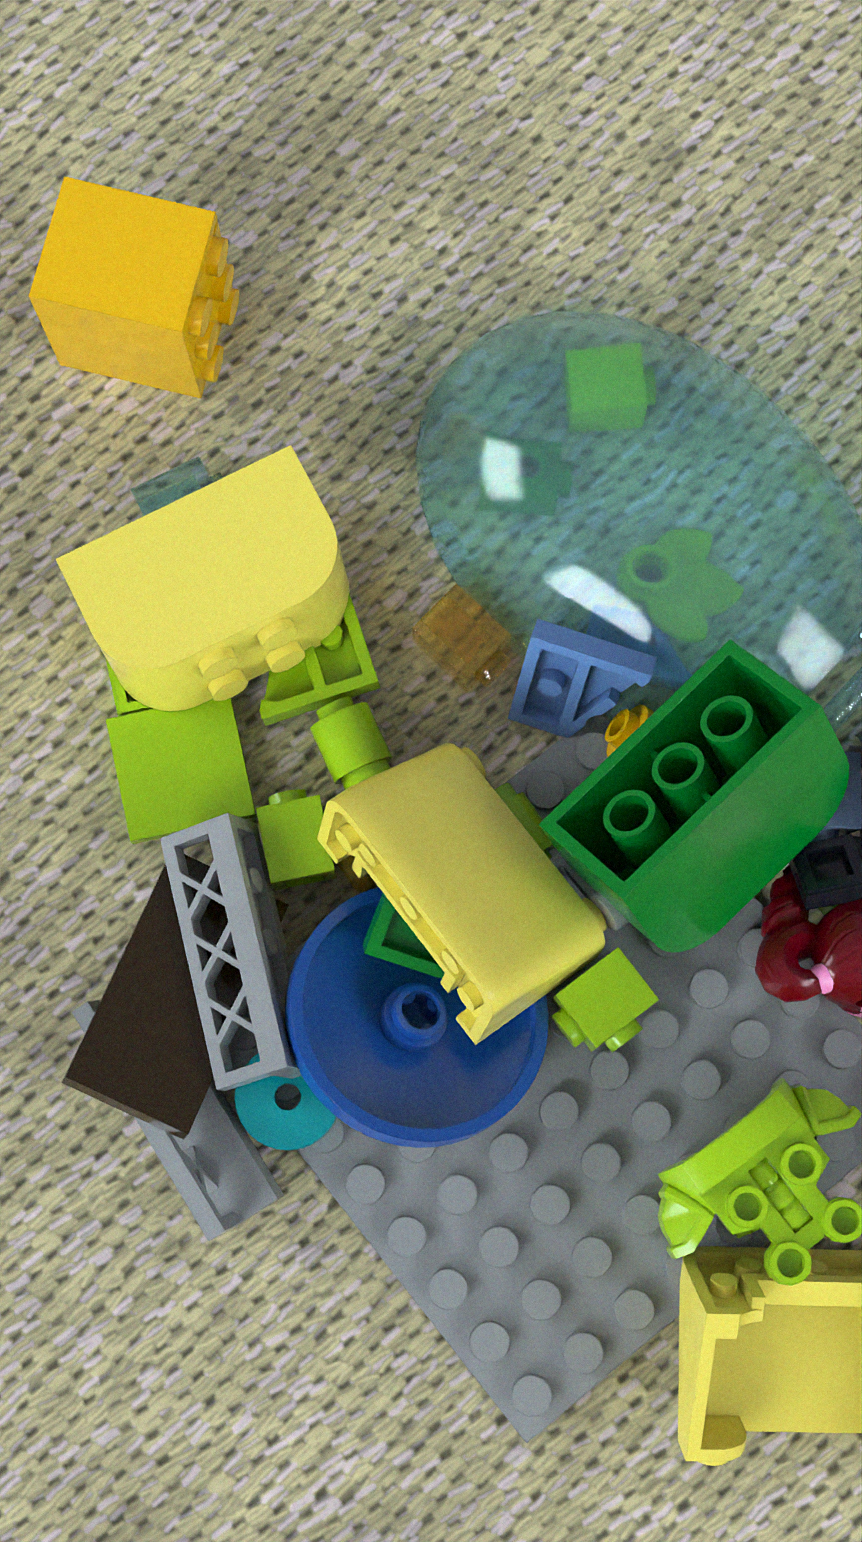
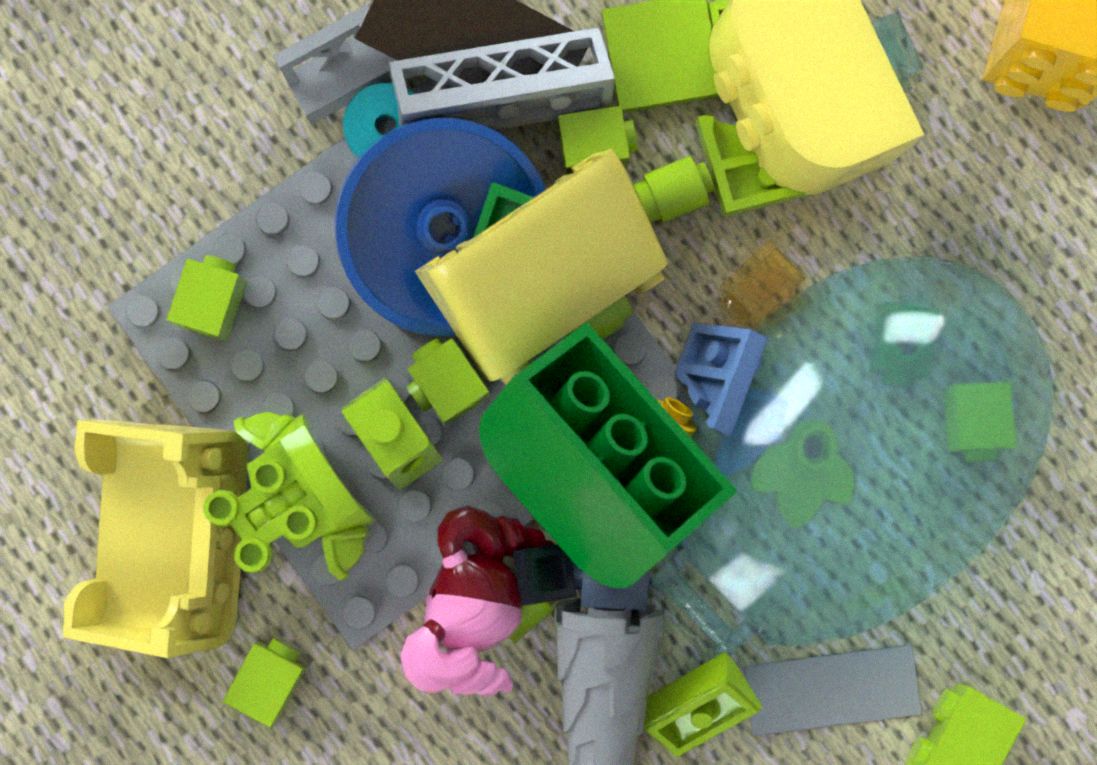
camera: 90 degrees right, 5 degrees up
(517, 1307) = (207, 297): none -> lime brick
(667, 1070) = (391, 434): none -> lime torso

